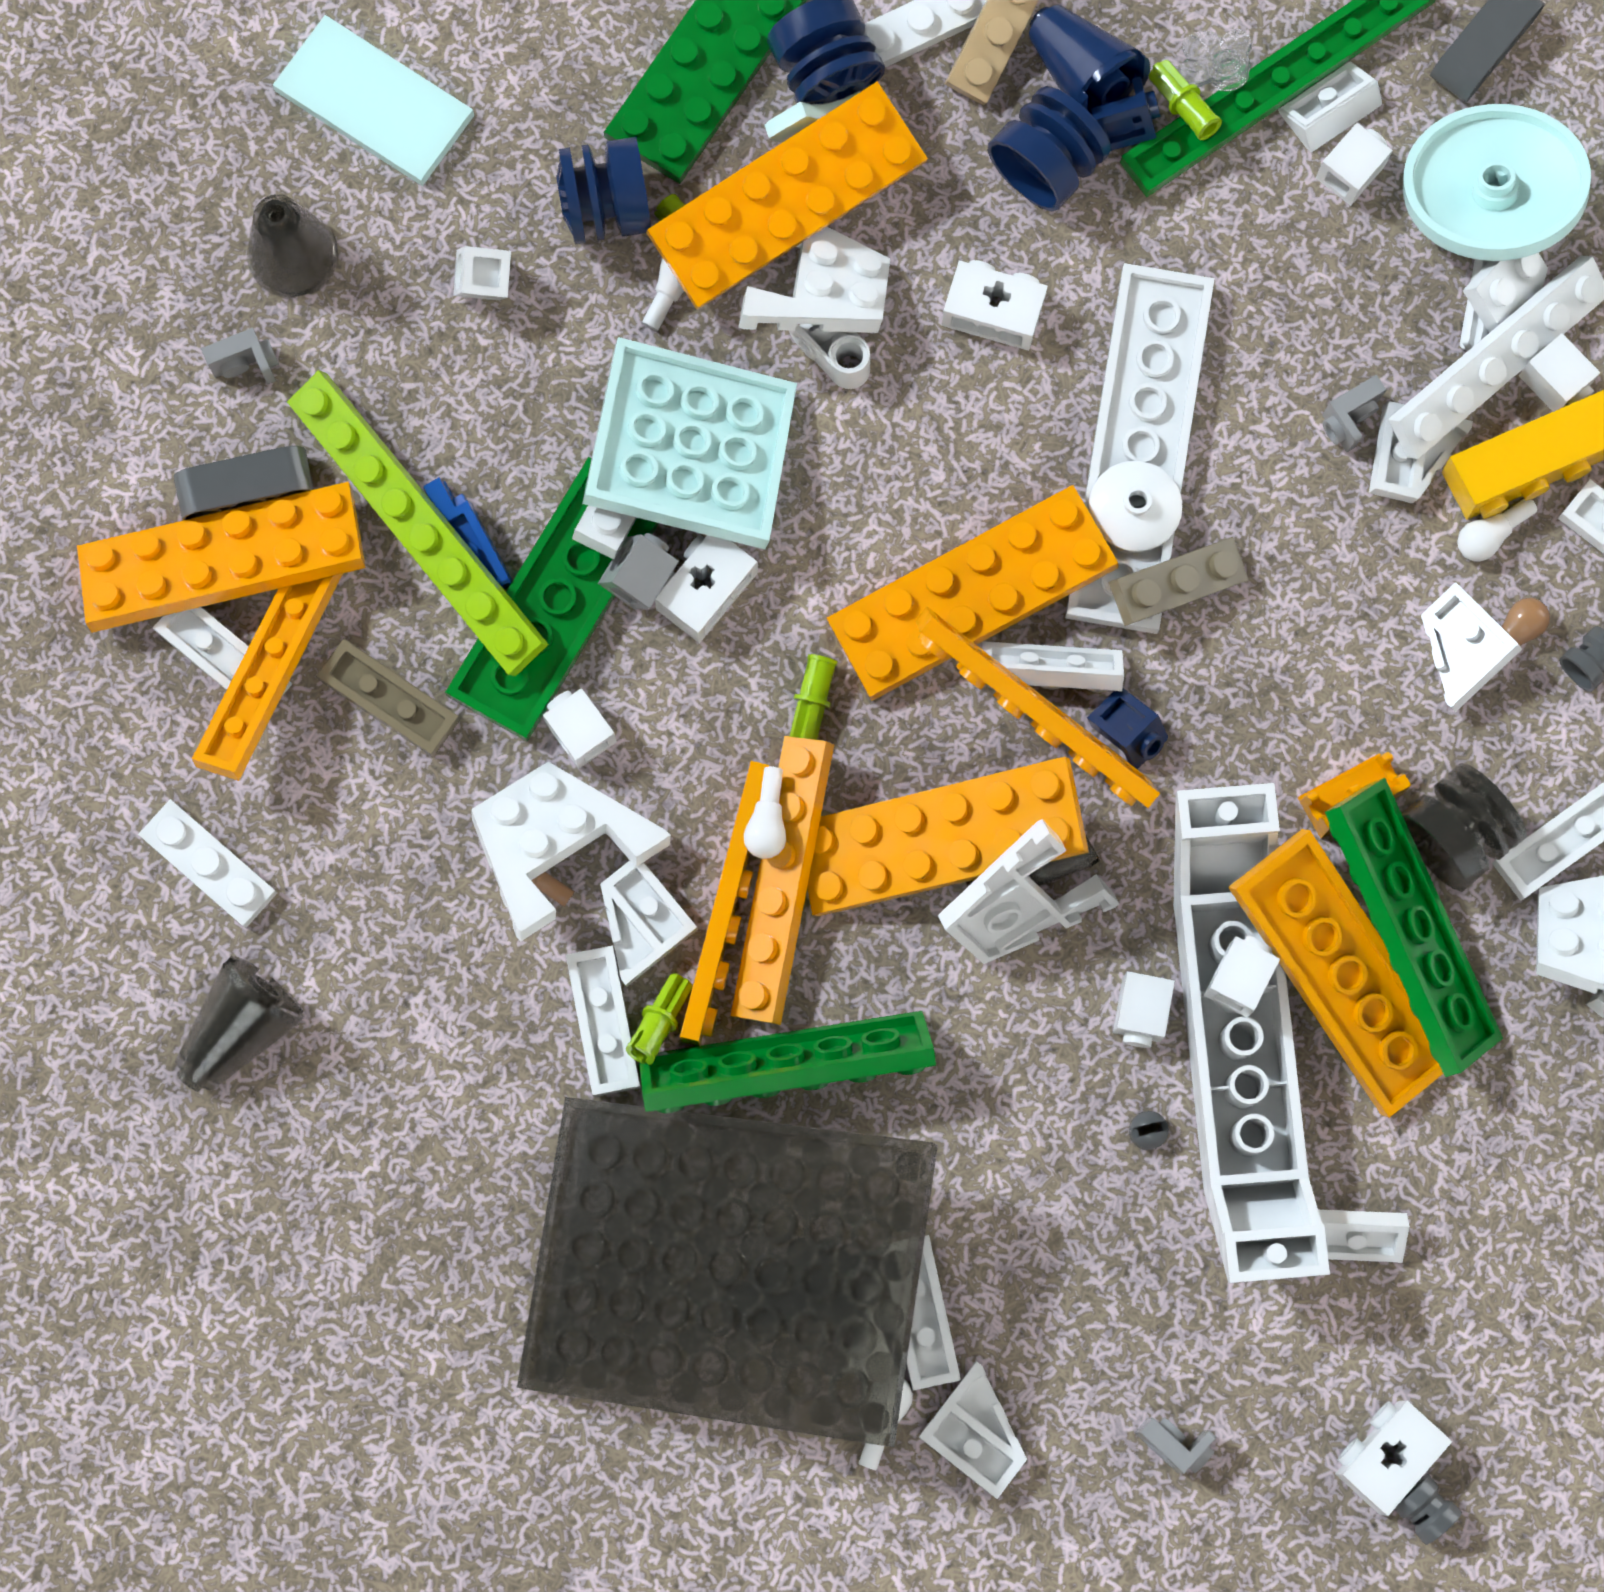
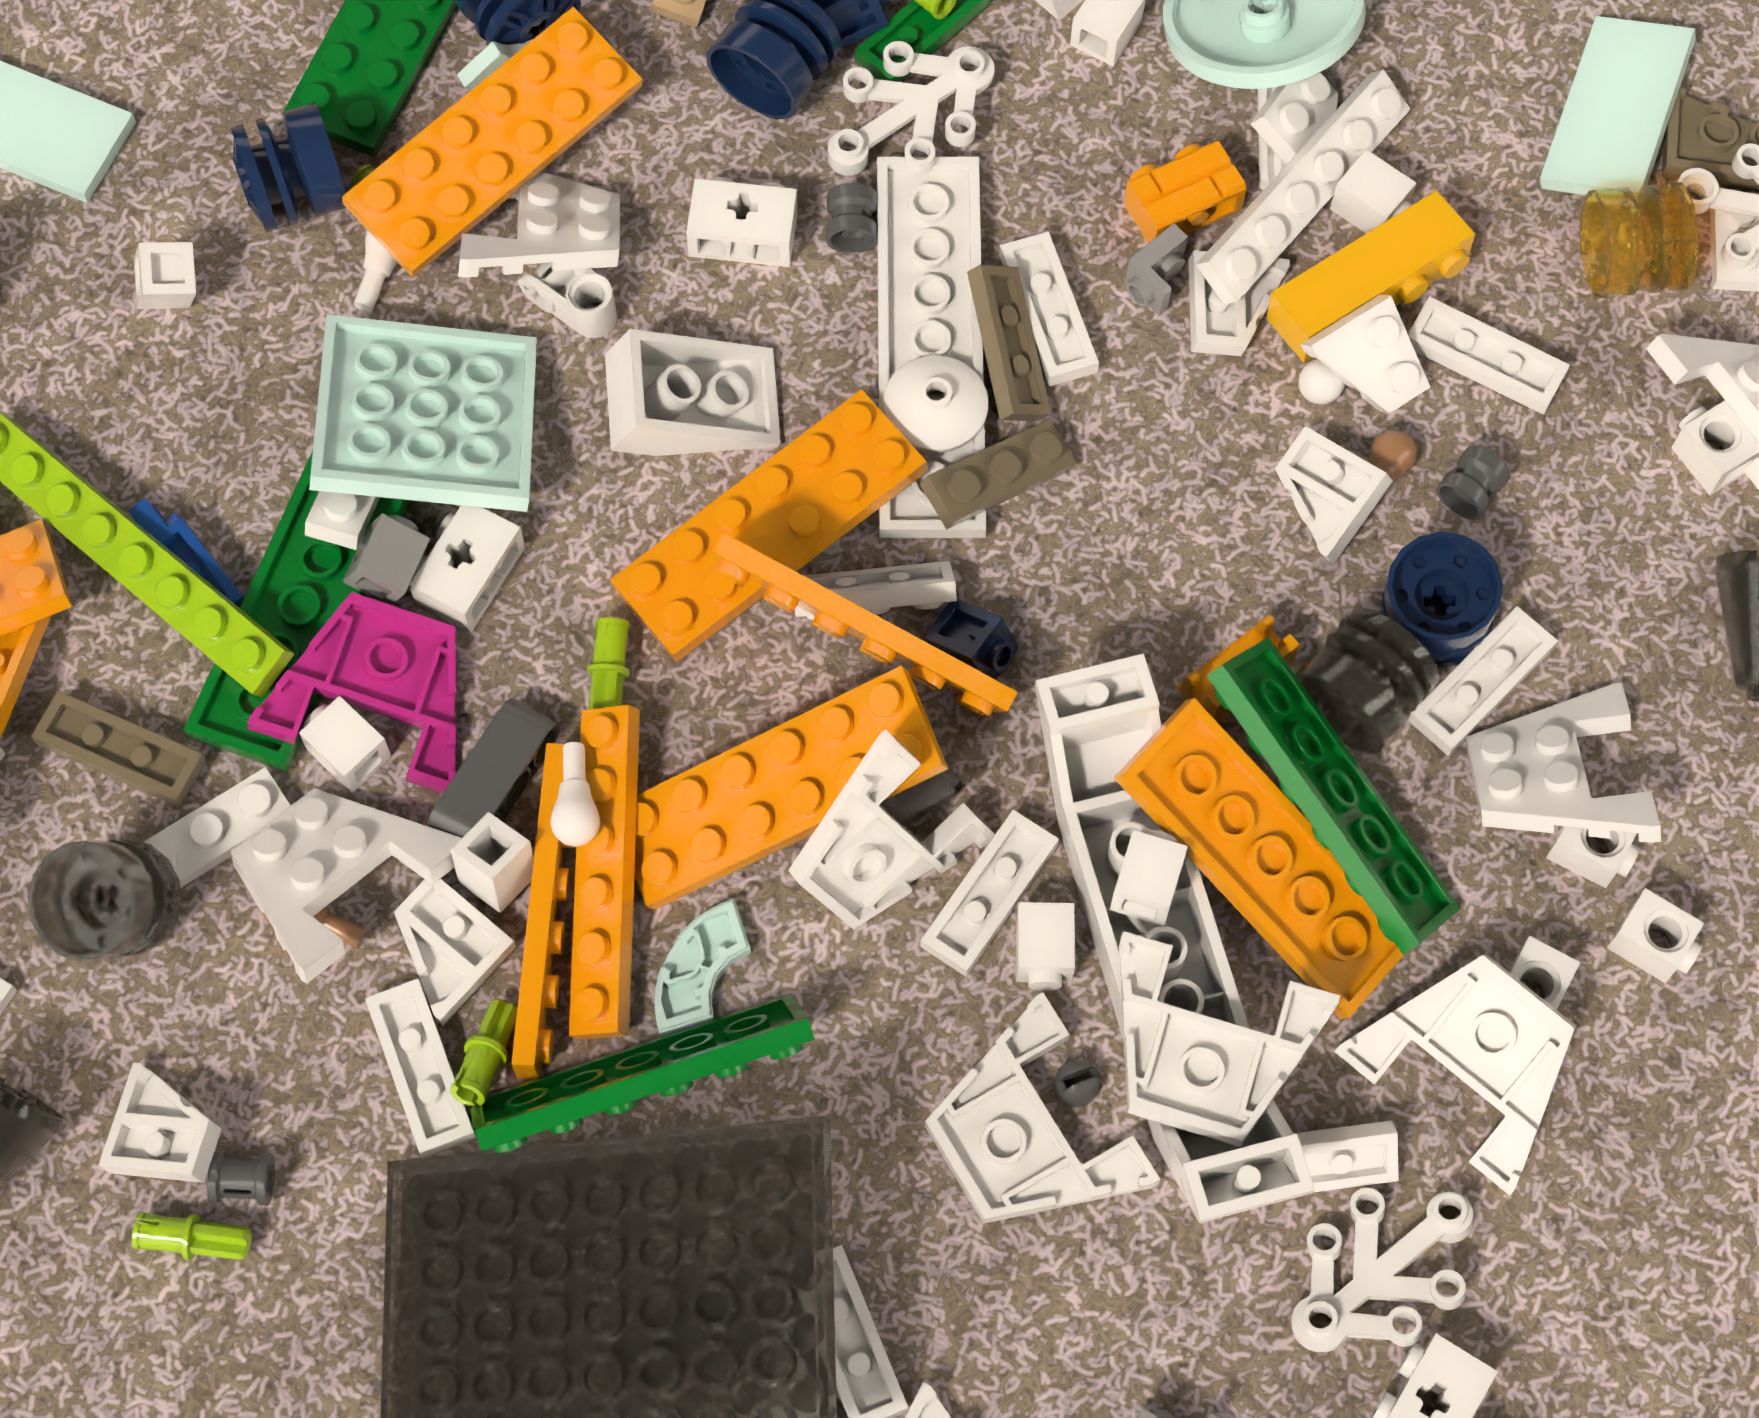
camera: 10 degrees left, 10 degrees down
(339, 840) = (104, 899): none -> clear smoke wheel
(381, 1038) = (158, 1132): none -> white wing
(395, 1130) = (191, 1236): none -> lime axle
(442, 1089) = (241, 1178): none -> dark grey bush
(452, 786) = (220, 825): none -> white plate
(623, 664) = (382, 664): none -> dark pink wing
(690, 857) = (493, 862): none -> white brick
(702, 777) = (495, 769): none -> dark grey beam
(845, 972) = (695, 965): none -> light aqua tile
(922, 461) = (689, 395): none -> white slope
(1080, 1170) = (1008, 1144): none -> white wing
(1091, 317) = (852, 213): none -> dark grey wheel
(1104, 954) = (989, 893): none -> white plate
(1167, 218) = (914, 102): none -> white plant
(1209, 460) = (1009, 343): none -> dark tan plate
(1250, 431) = (1055, 319): none -> white plate
(1255, 1149) = (1200, 1068): none -> white wing
(1367, 1340) = (1378, 1277): none -> white plant
(1391, 343) = (1187, 191): none -> light orange brick
(1504, 1159) = (1489, 1036): none -> white wing
(1527, 527) = (1372, 355): none -> white wing
(1563, 750) = (1456, 575): none -> dark blue wheel
(1569, 1108) = (1546, 967): none -> white brick

